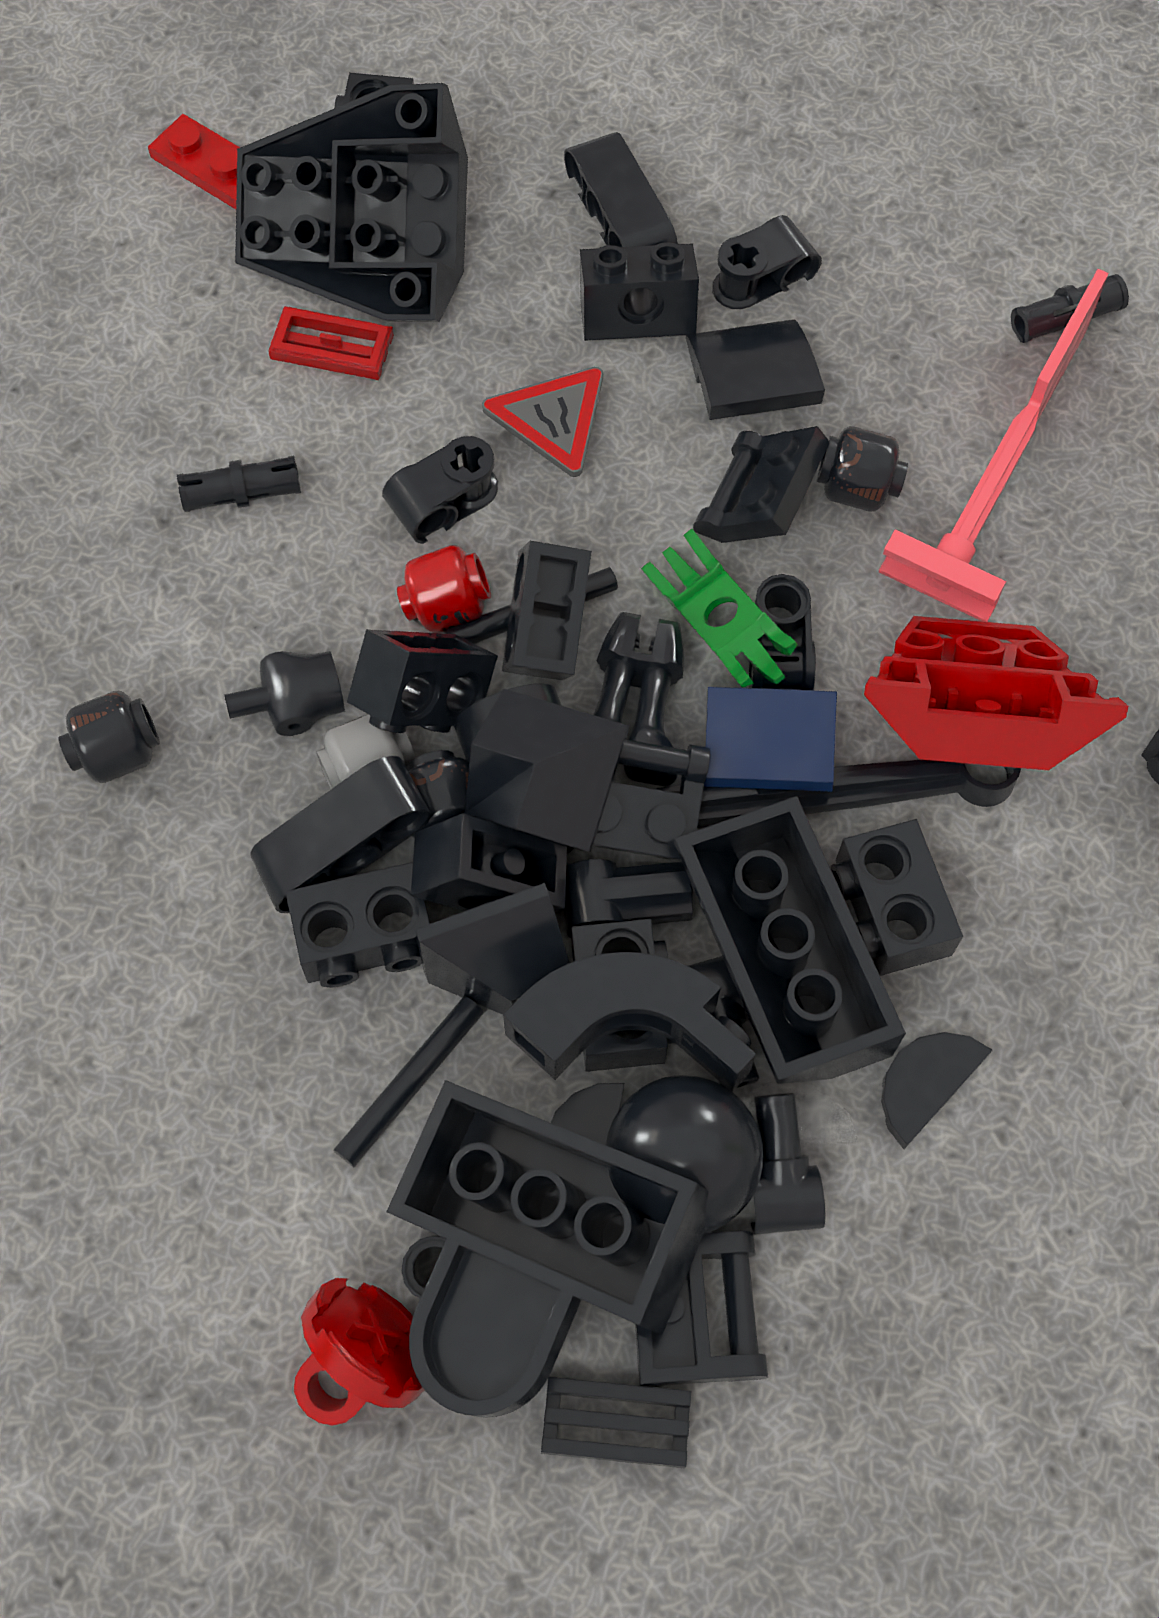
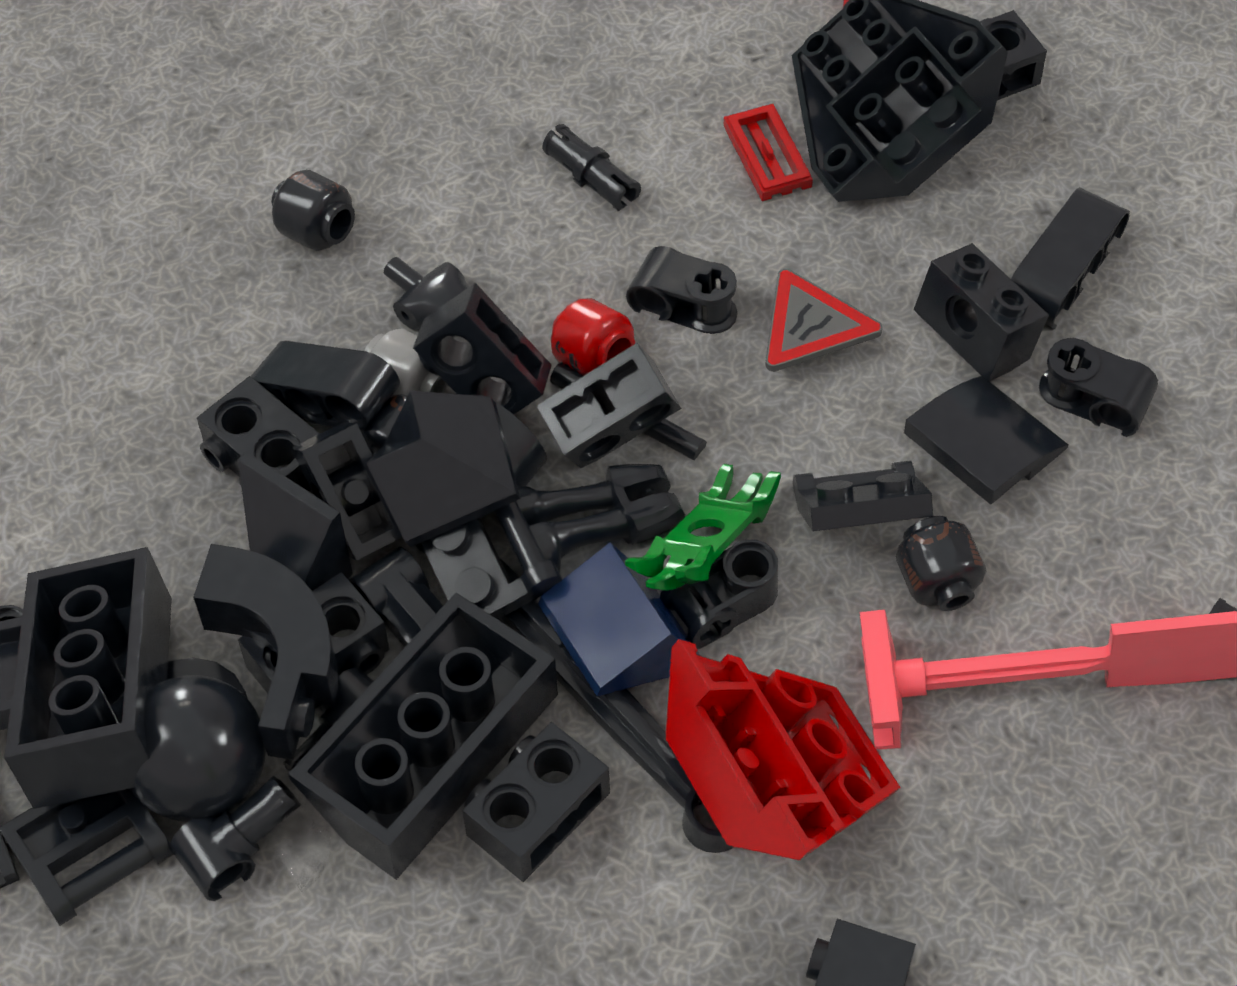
camera: 60 degrees right, 10 degrees down
(408, 1081) = (162, 551): black bar -> none
(925, 1079) = (387, 914): black tile -> none

